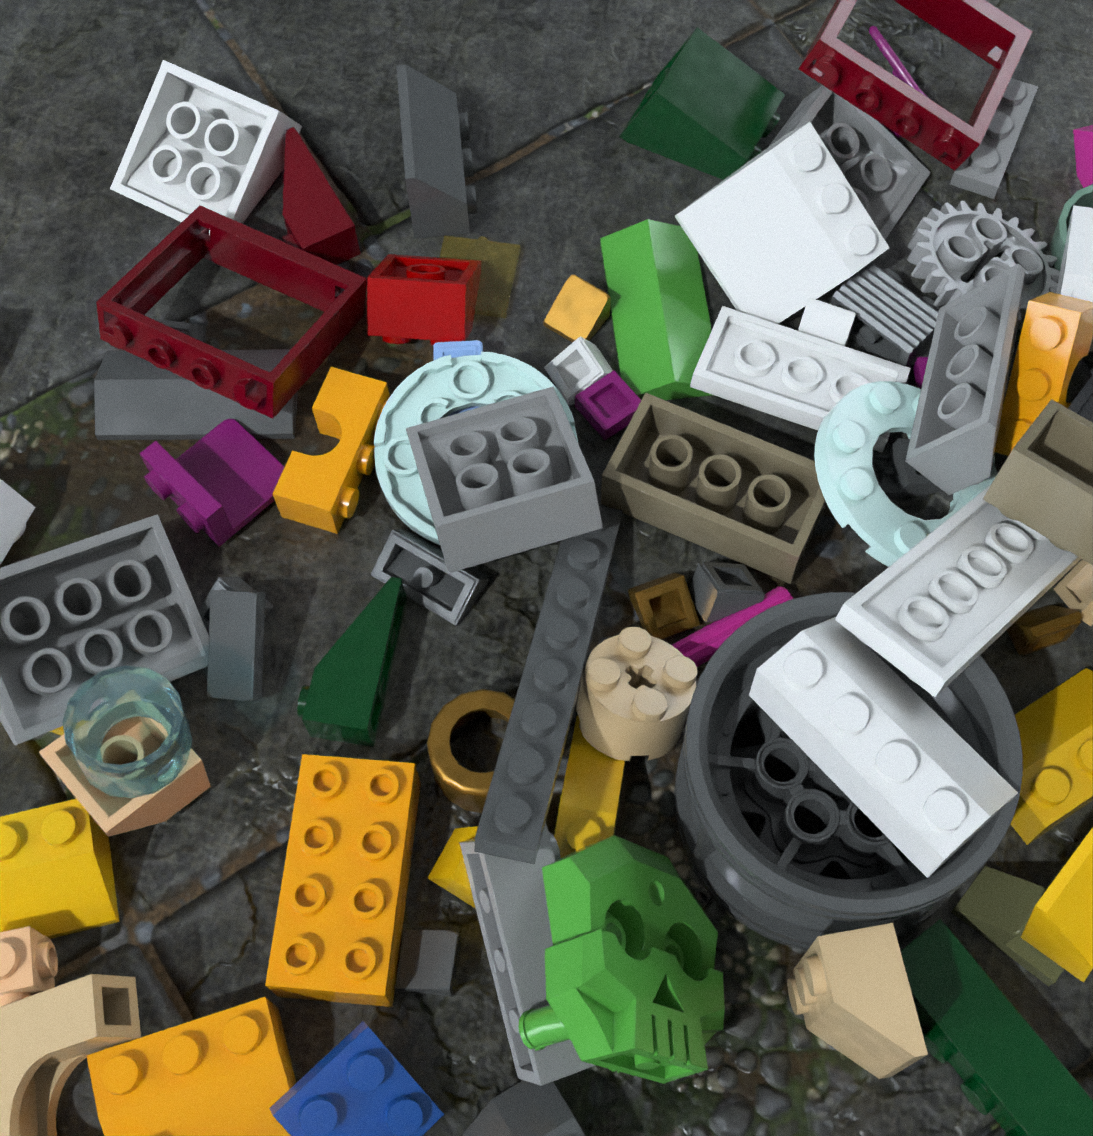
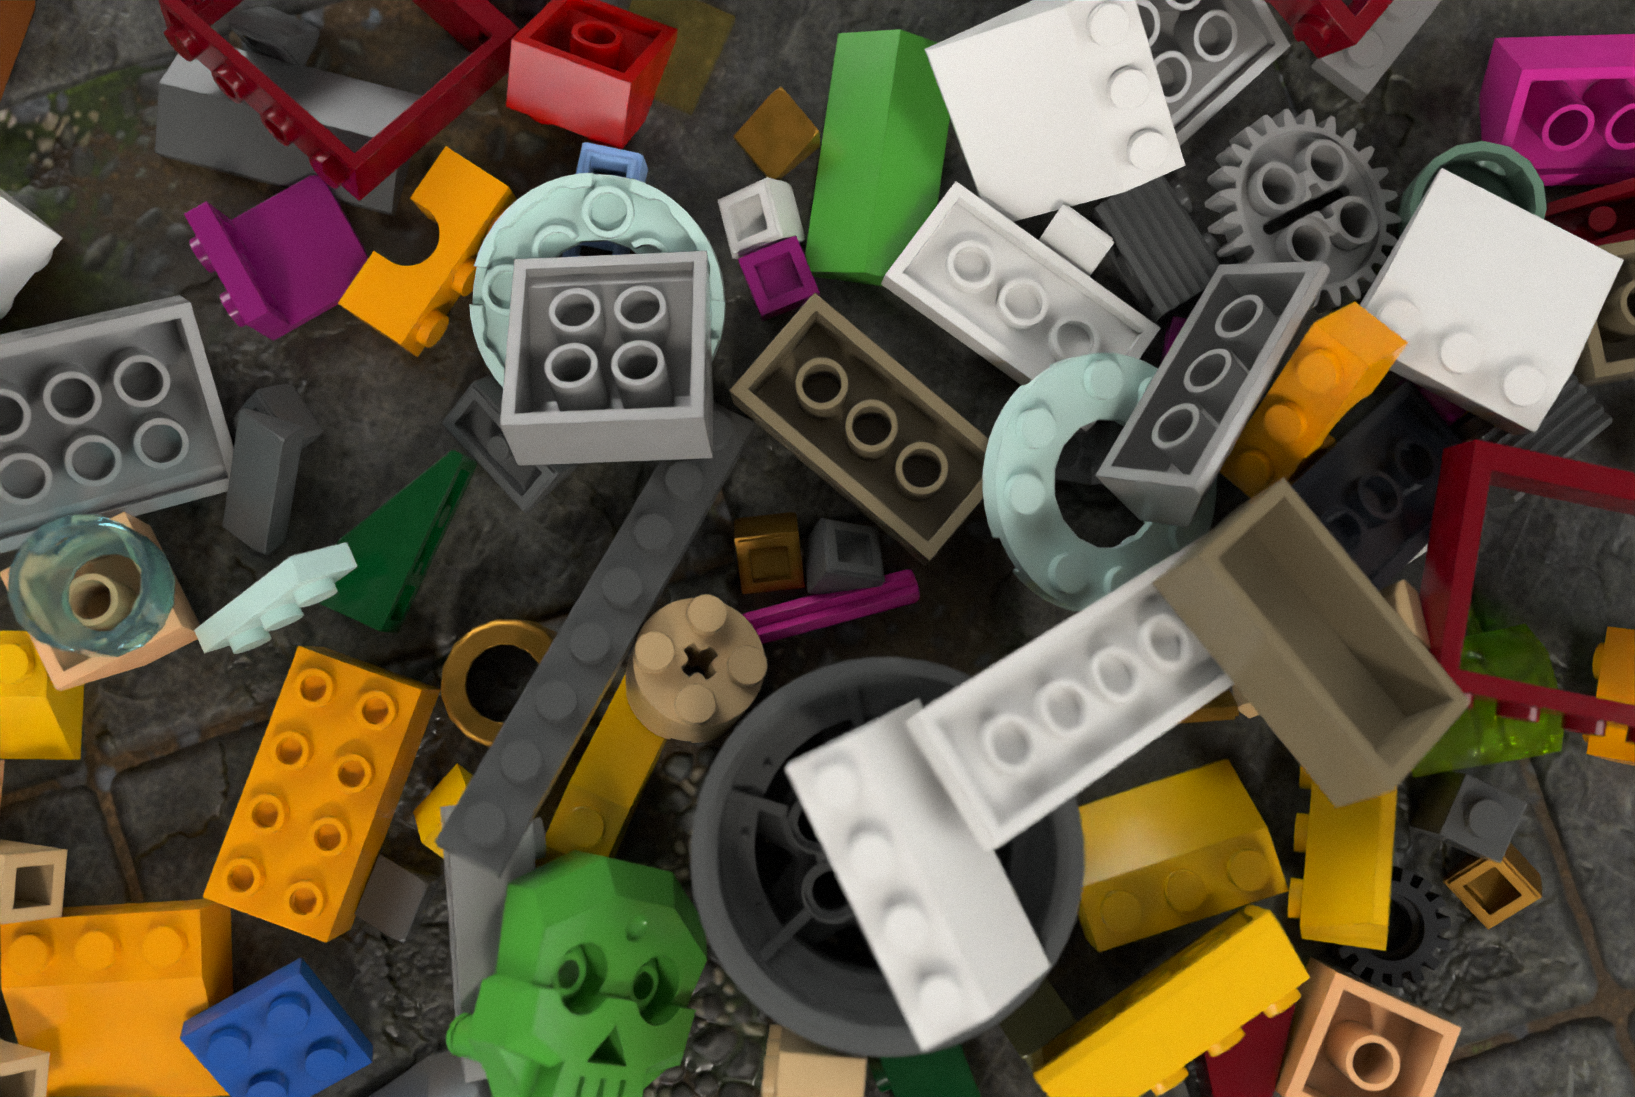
camera: 15 degrees right, 20 degrees up
(275, 719) = (276, 599): none -> light aqua plate

